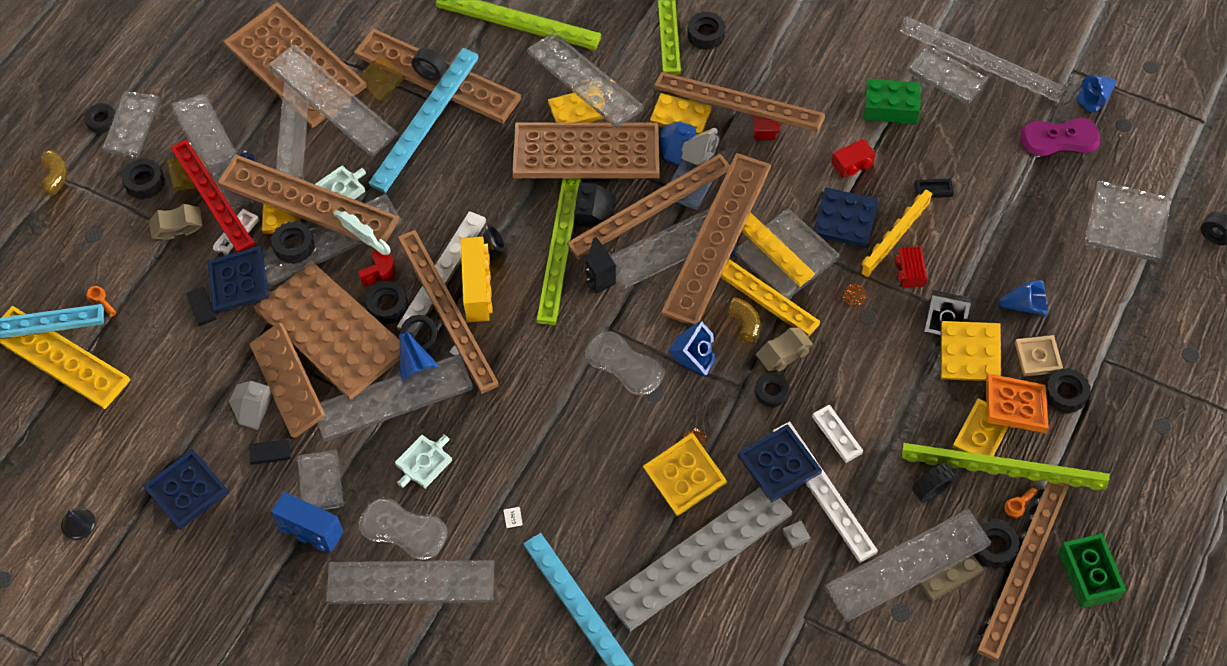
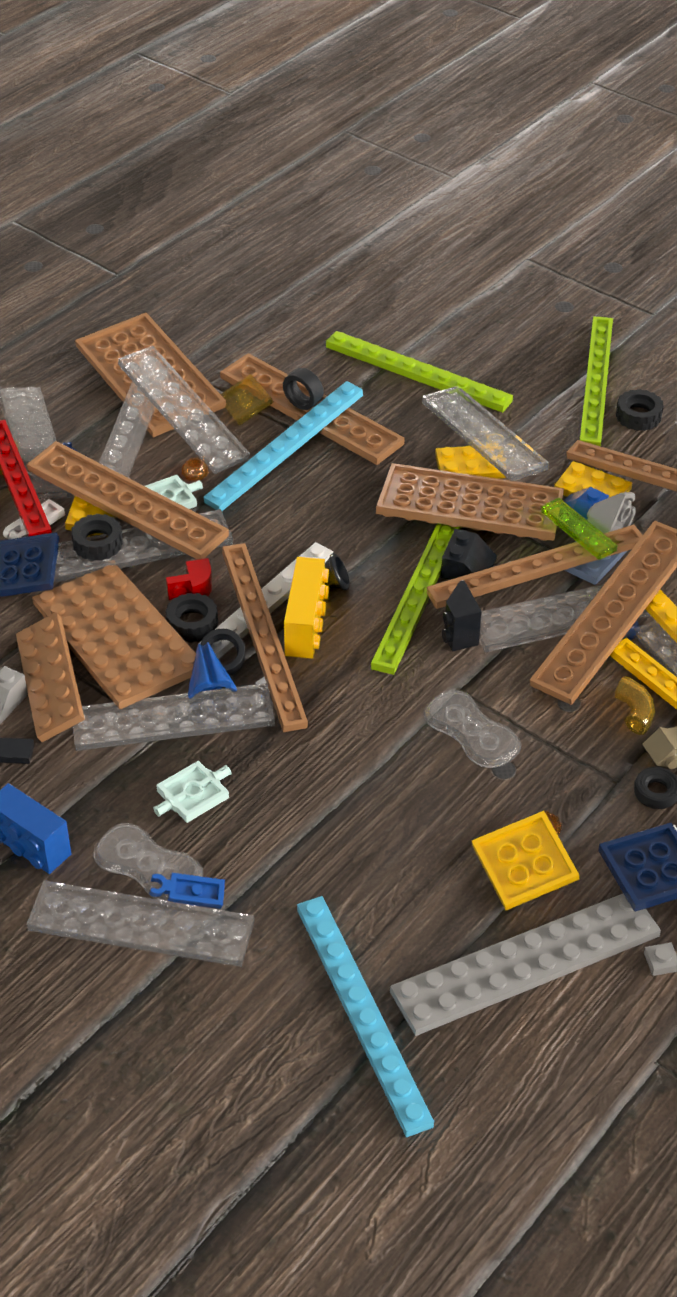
camera: 10 degrees right, 15 degrees down
(321, 479) = (62, 787): clear plate -> none
(355, 160) = (194, 469): none -> clear orange plate
(362, 231) = (181, 535): light aqua plate -> none
(442, 548) = (190, 889): none -> blue plate
(513, 517) = (291, 875): white sticker -> none
(677, 166) = (579, 528): none -> clear neon green tile
(694, 348) = (564, 725): blue slope -> none

